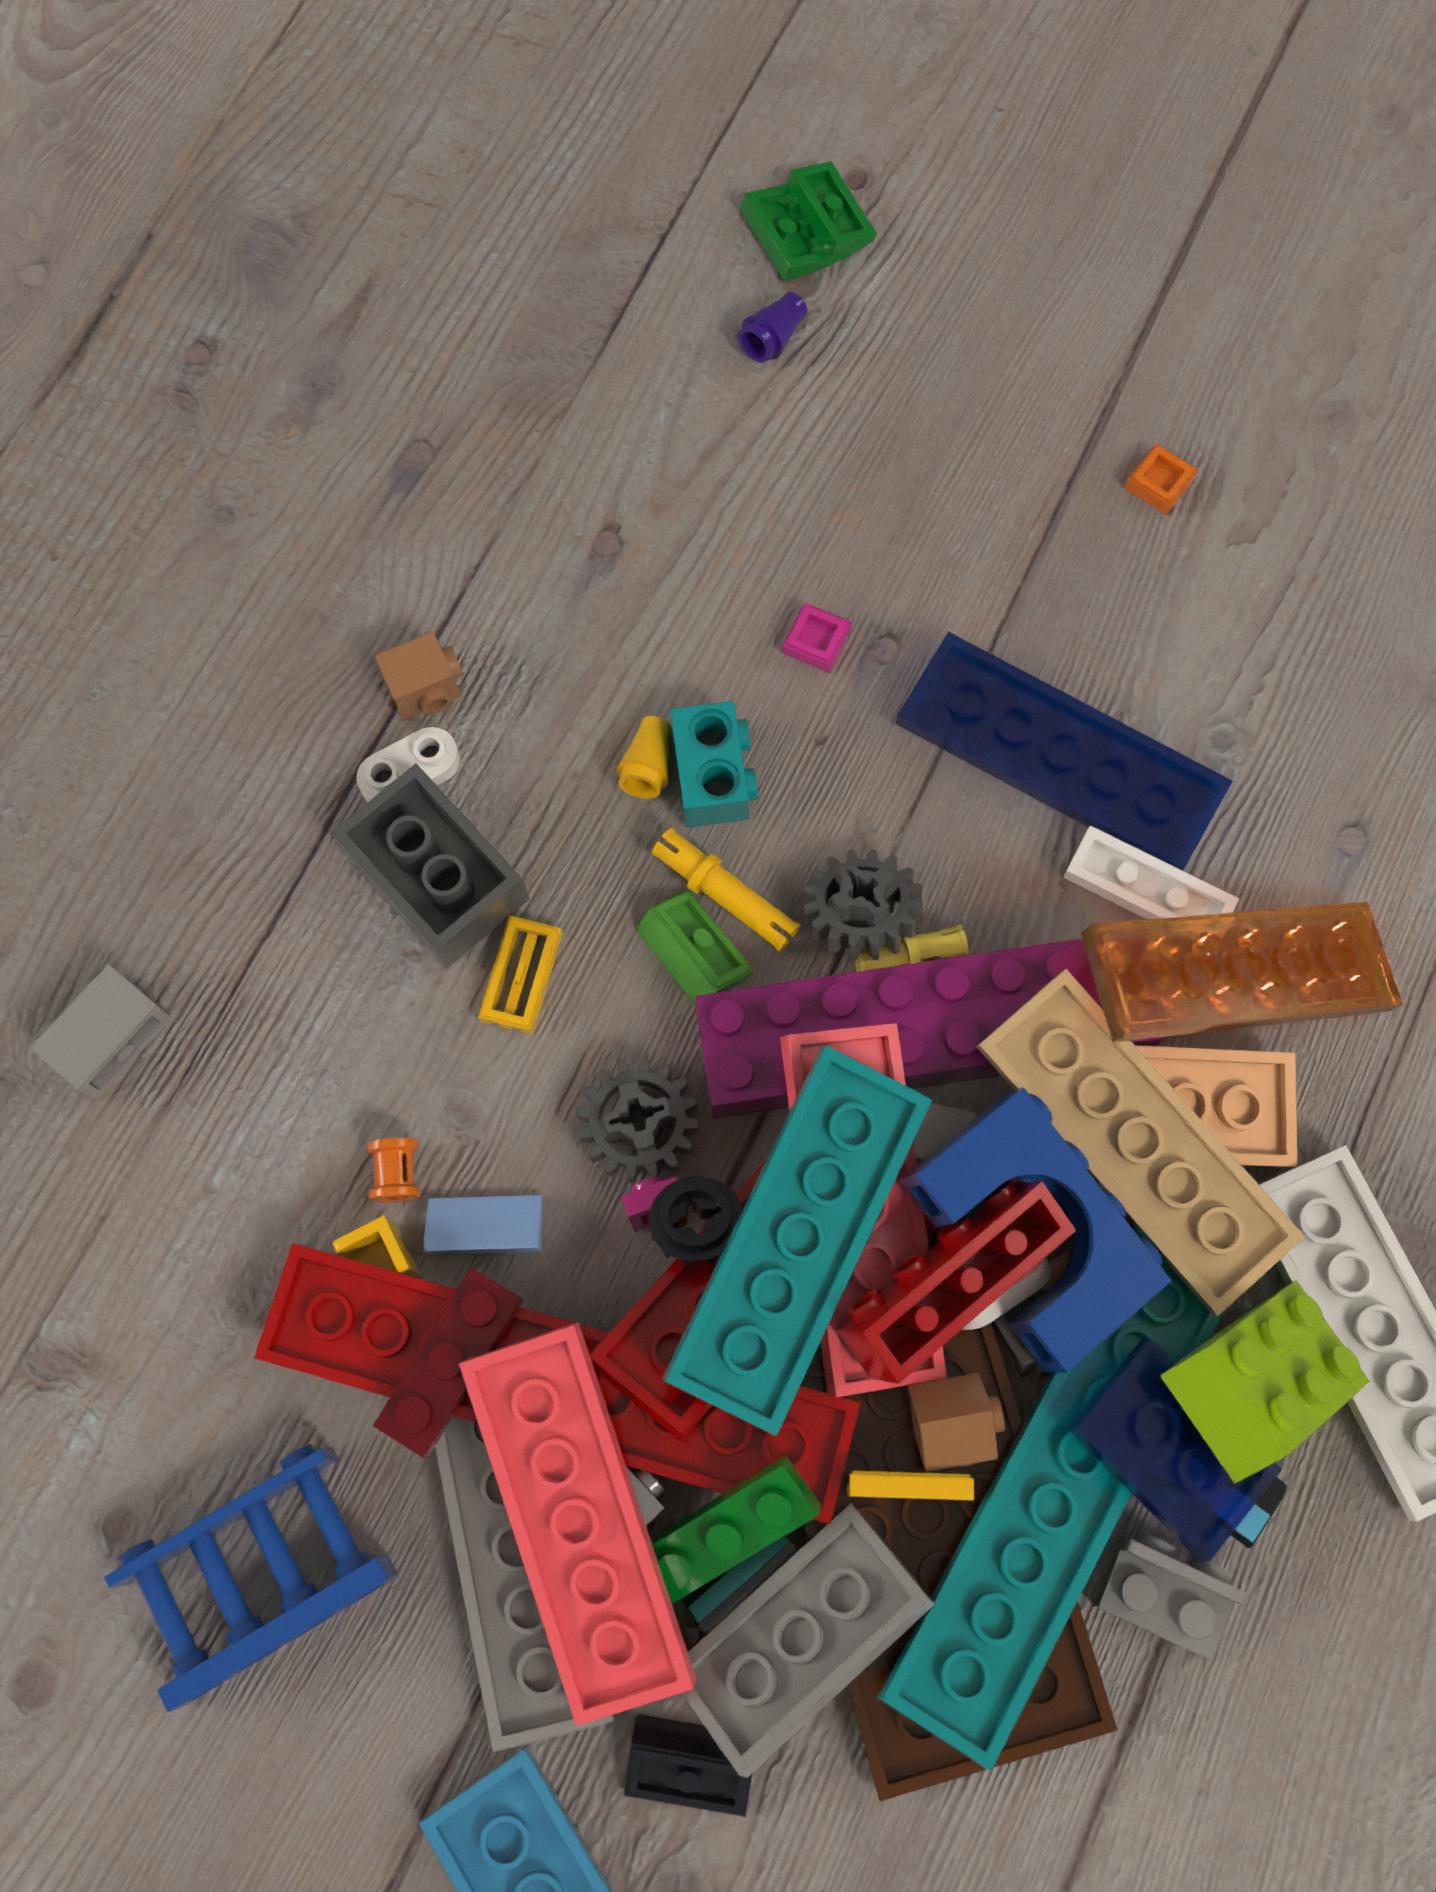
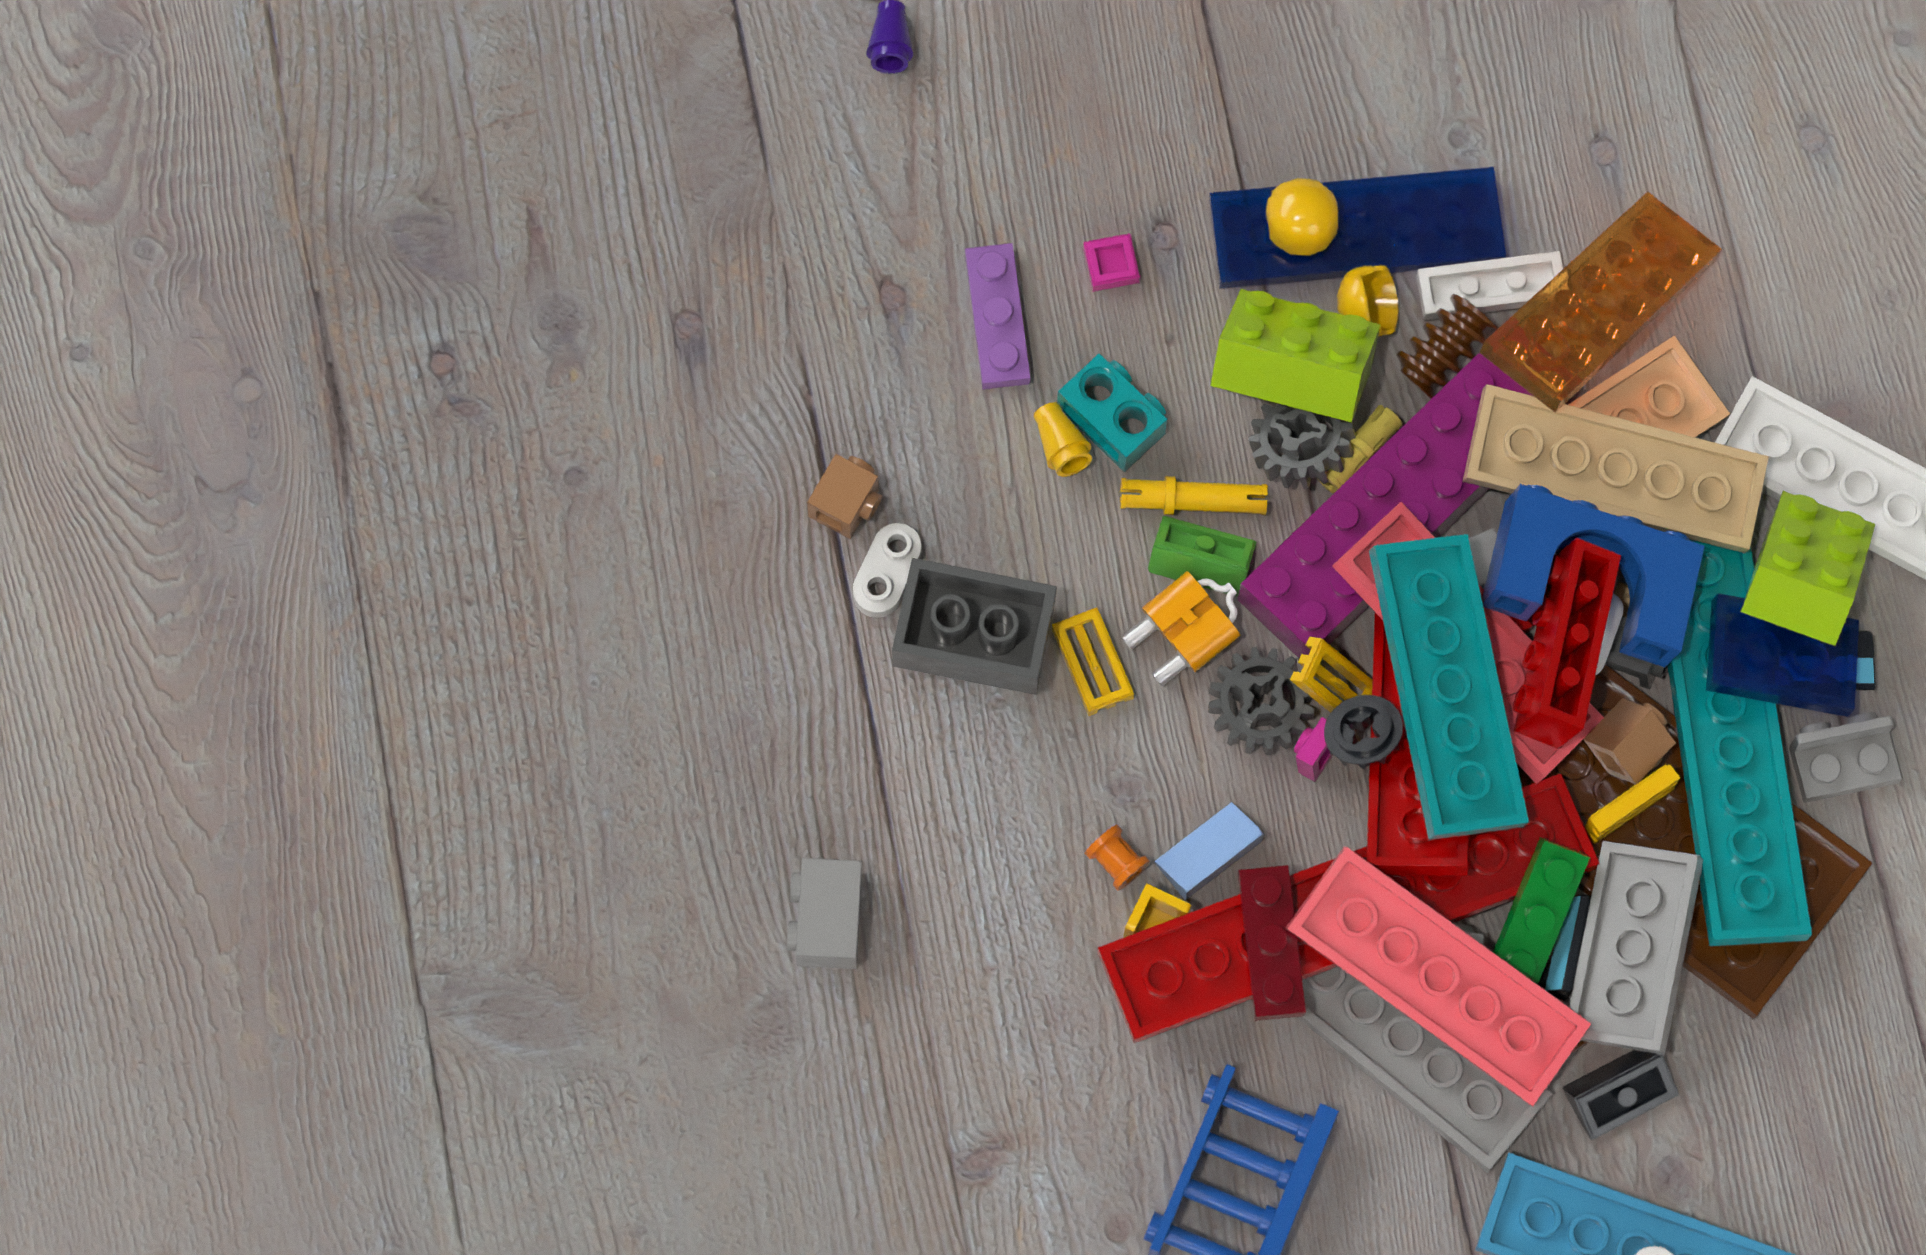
camera: 40 degrees left, 0 degrees up
(631, 1001) = (1189, 623): none -> light orange piece
(679, 617) = (997, 316): none -> medium lavender plate
(698, 1120) = (1311, 667): none -> yellow tile
(910, 822) = (1295, 354): none -> lime brick
(1015, 705) = (1302, 216): none -> yellow hair
(1021, 823) = (1370, 294): none -> yellow hair
(1059, 910) = (1445, 345): none -> reddish brown piece

